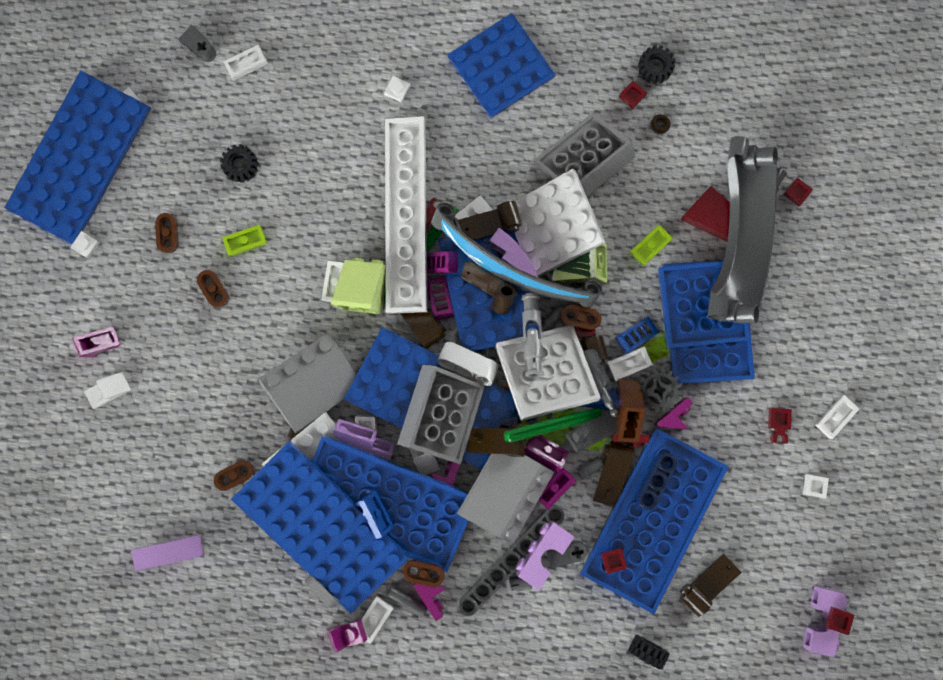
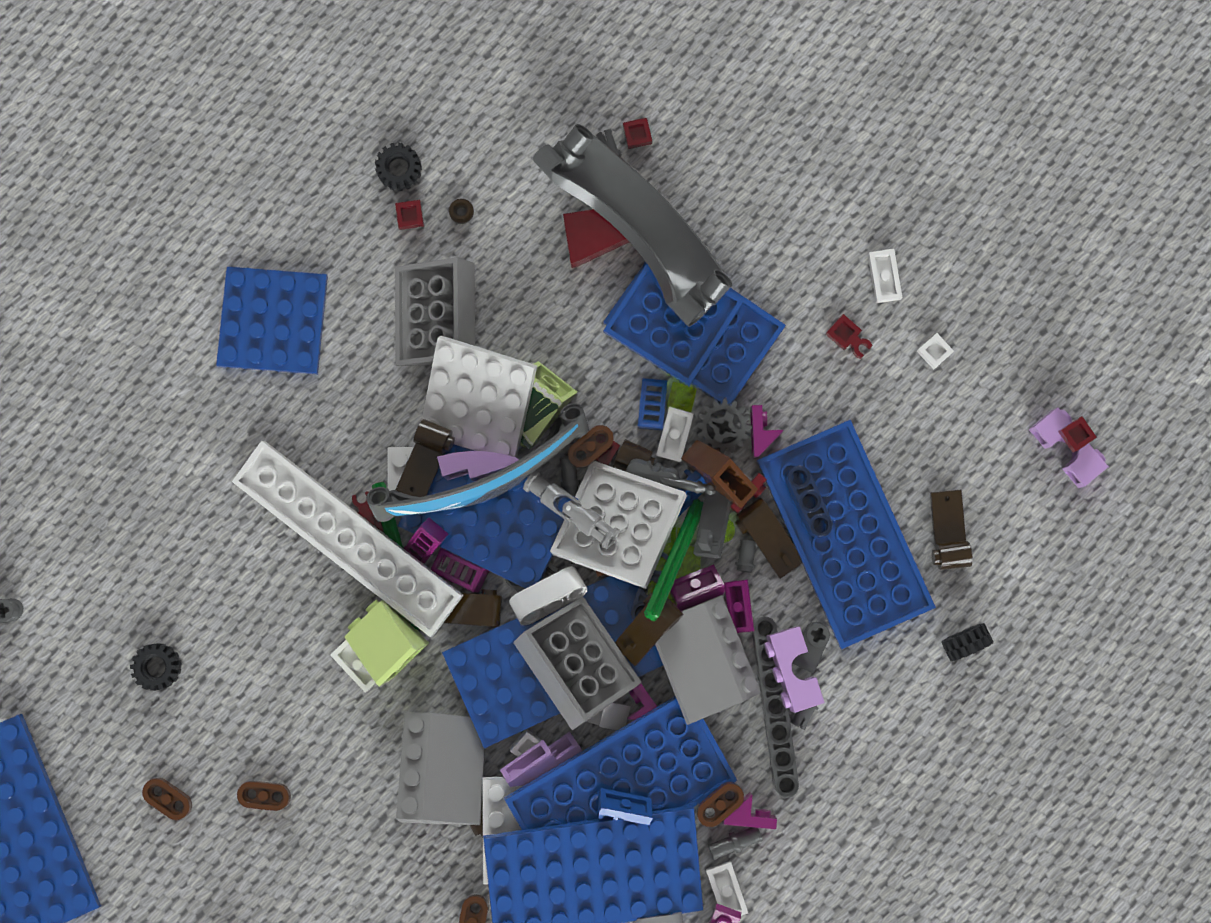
camera: 50 degrees left, 0 degrees up
(85, 244) = (110, 894): white plate -> none
(244, 240) = (240, 724): lime plate -> none
(245, 62) = (54, 578): white plate -> none
(397, 89) = (210, 444): white plate -> none
(502, 291) = (503, 504): dark brown door -> none
(613, 560) = (853, 605): dark red plate -> none
(651, 245) = (574, 319): lime plate -> none

